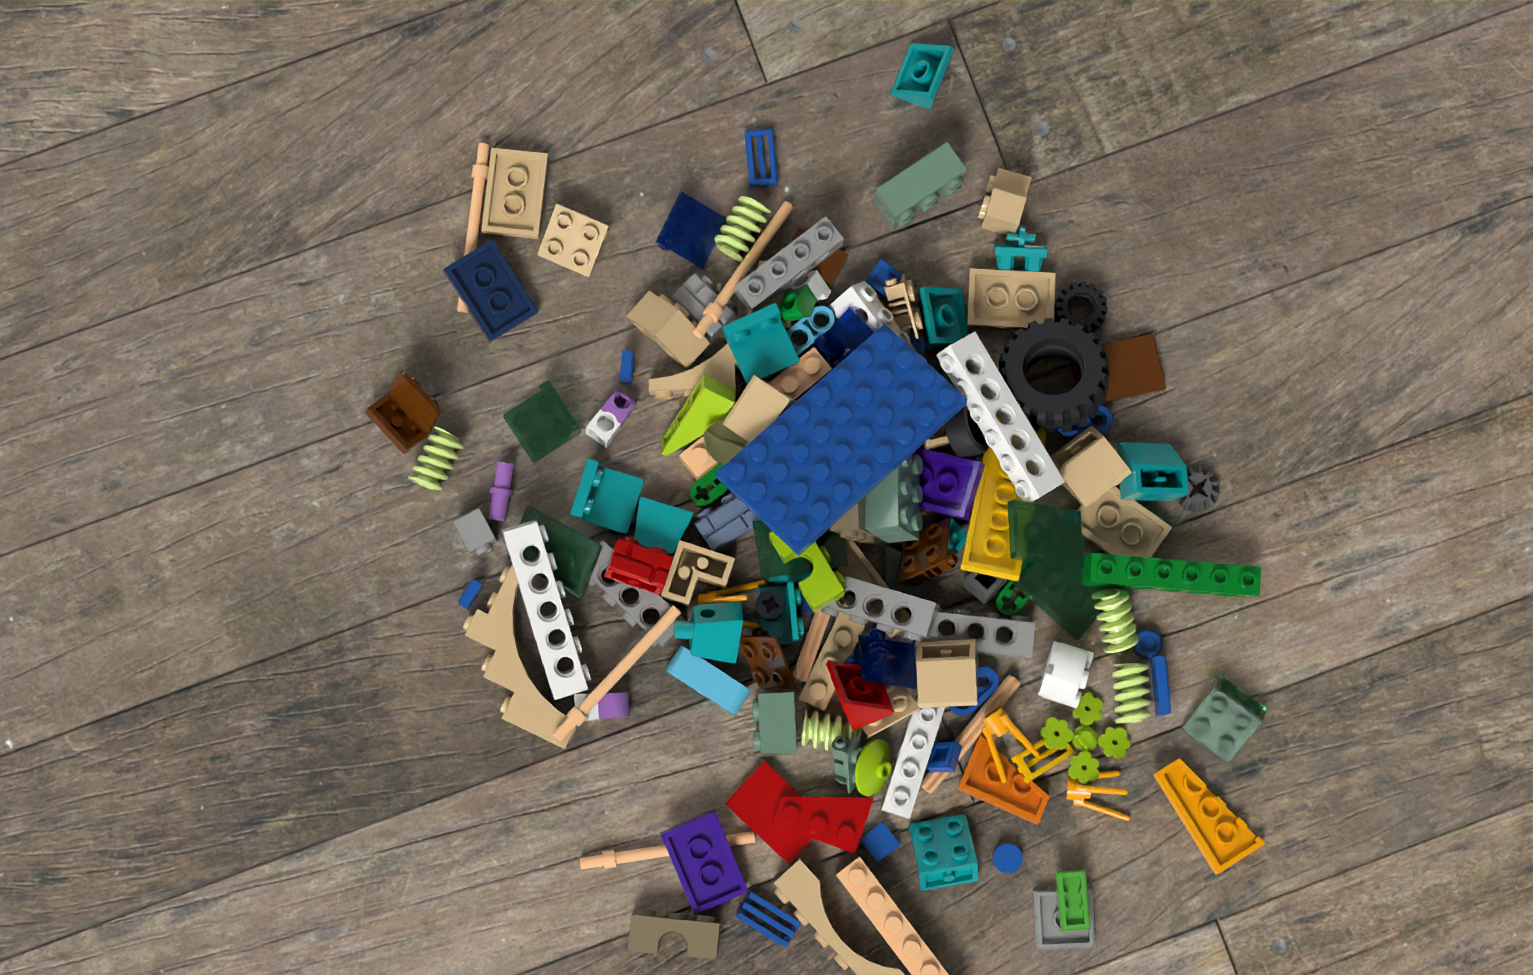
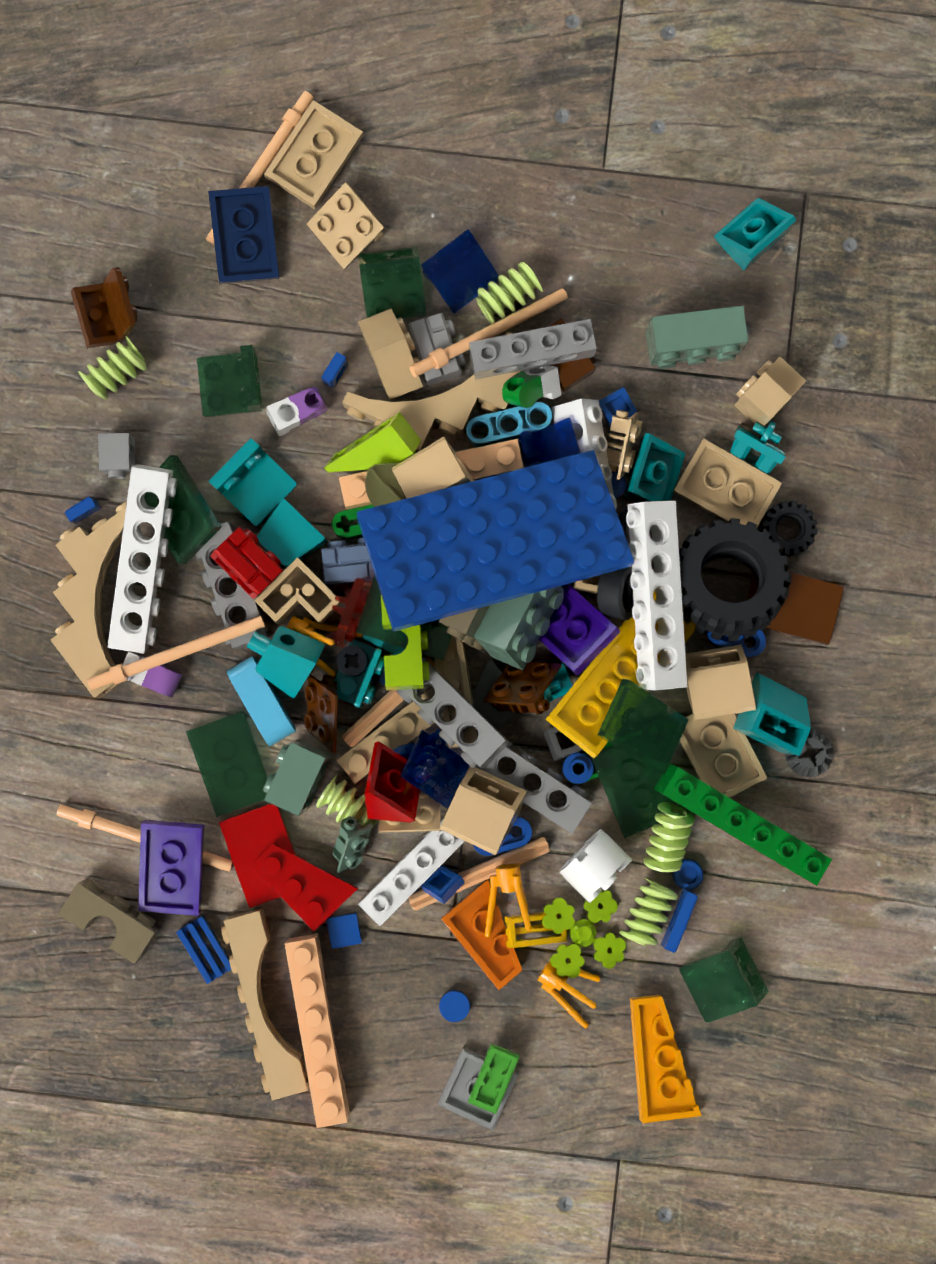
camera: 30 degrees right, 5 degrees up
(501, 491) = (159, 428): medium lavender pin -> none
(638, 267) = (392, 282): none -> clear green bracket
(708, 748) = (229, 763): none -> clear green tile
(746, 554) = (355, 602): none -> clear red piece
(760, 343) = (467, 410): teal bracket -> none
(763, 182) = (552, 260): blue tile -> none
(873, 767) = (371, 860): lime dish -> none
(944, 852) = (398, 970): teal bracket -> none
(999, 603) = (578, 758): none -> blue plate

